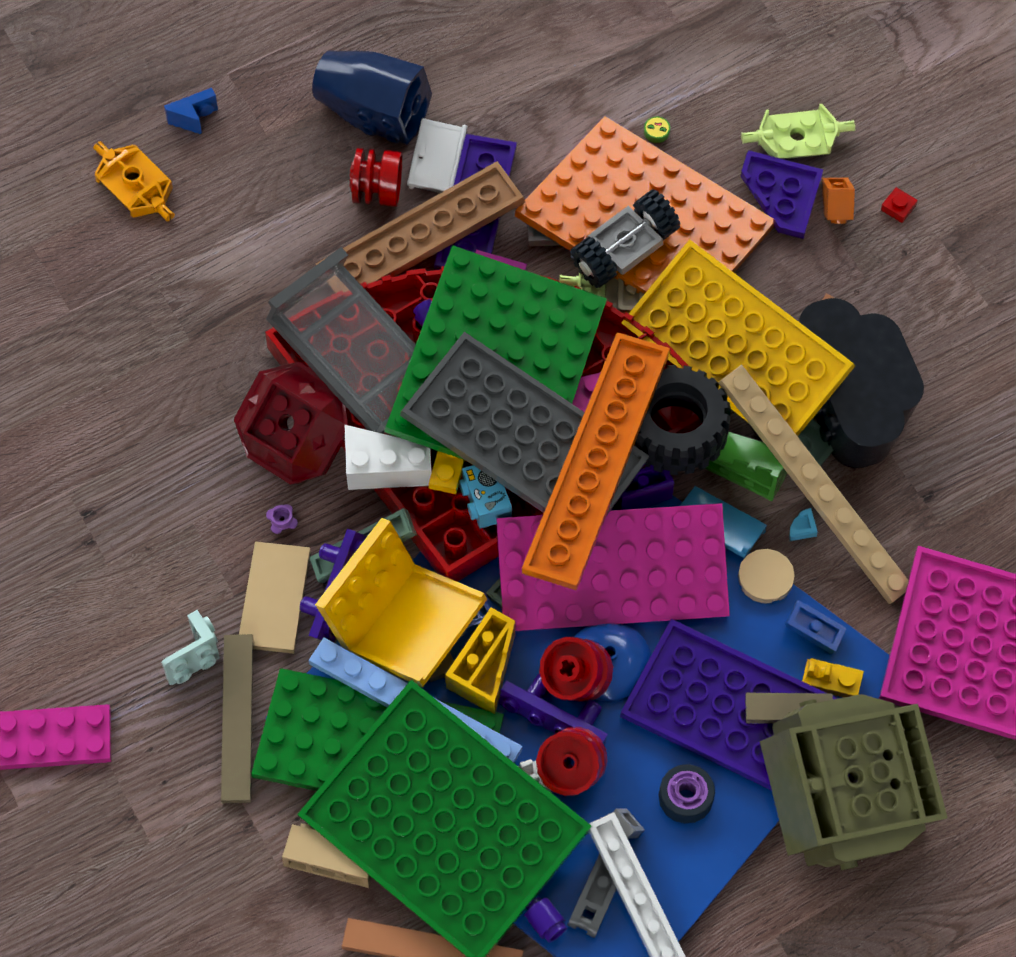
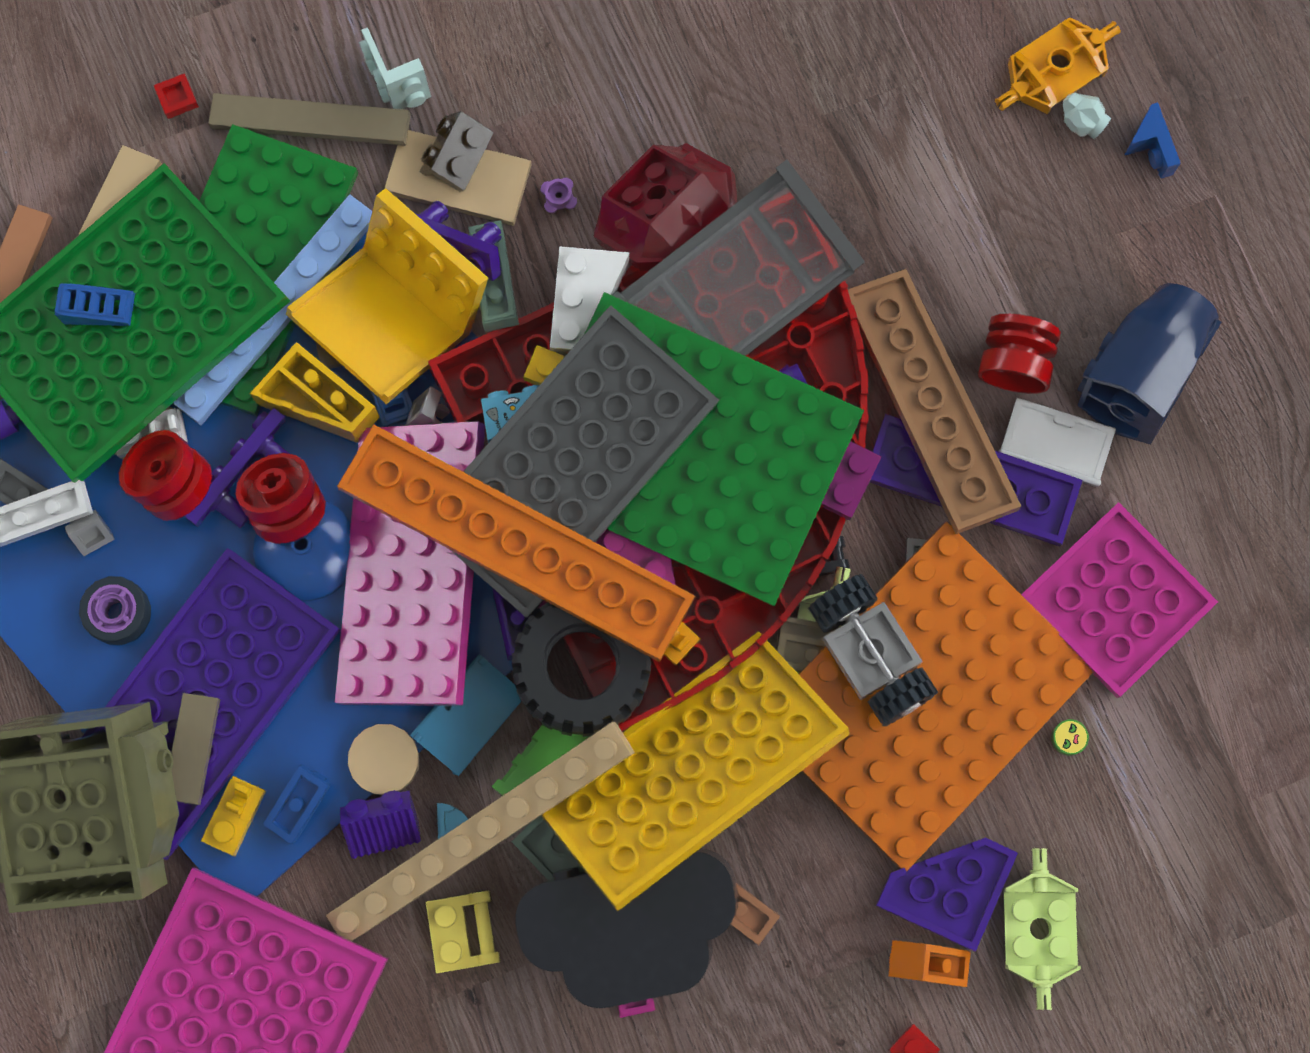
camera: 100 degrees right, 15 degrees up
(175, 156) = (1085, 115): none -> light aqua rock
(227, 830) = (176, 96): none -> red plate
(255, 595) = (456, 150): none -> bracket
(436, 862) = (72, 301): none -> blue slope
(484, 578) = (426, 408): none -> light grey tile
(550, 105) = (1119, 599): none -> dark pink plate
(816, 569) = (380, 823): none -> dark purple brick
(885, 515) = (450, 932): none -> light yellow plate

